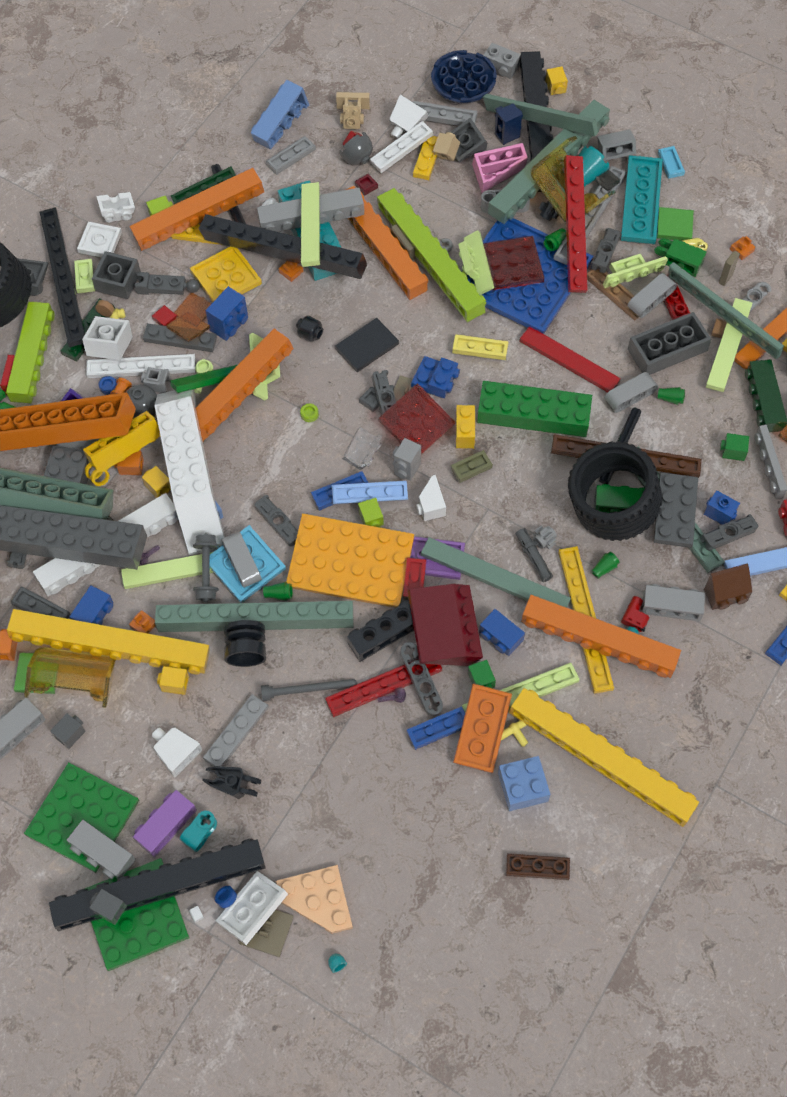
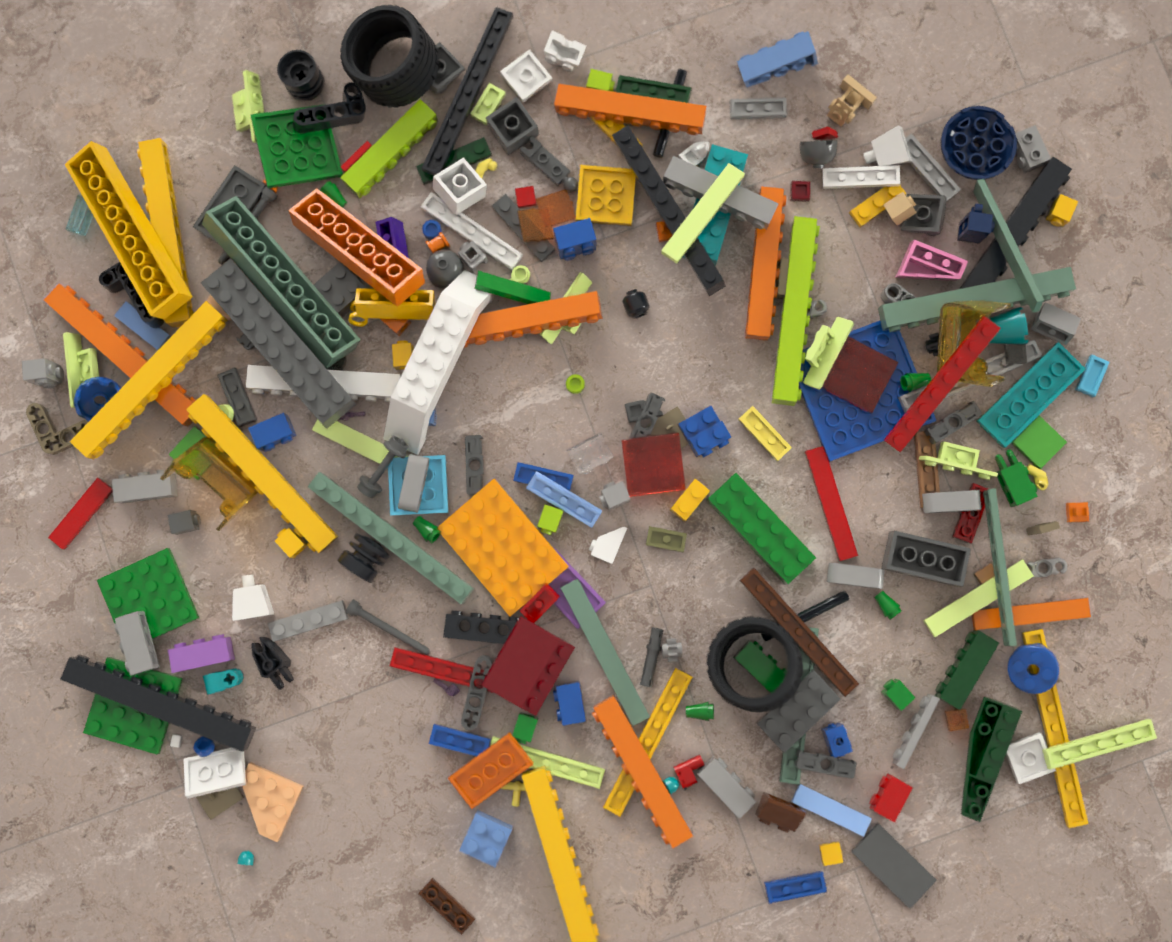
camera: 40 degrees right, 20 degrees up
(104, 308) = (477, 154): medium nougat tile -> none
(107, 906) = (103, 697): dark grey brick -> none
(142, 623) = (304, 473): orange tile -> none
(366, 344) = (673, 355): black tile -> none

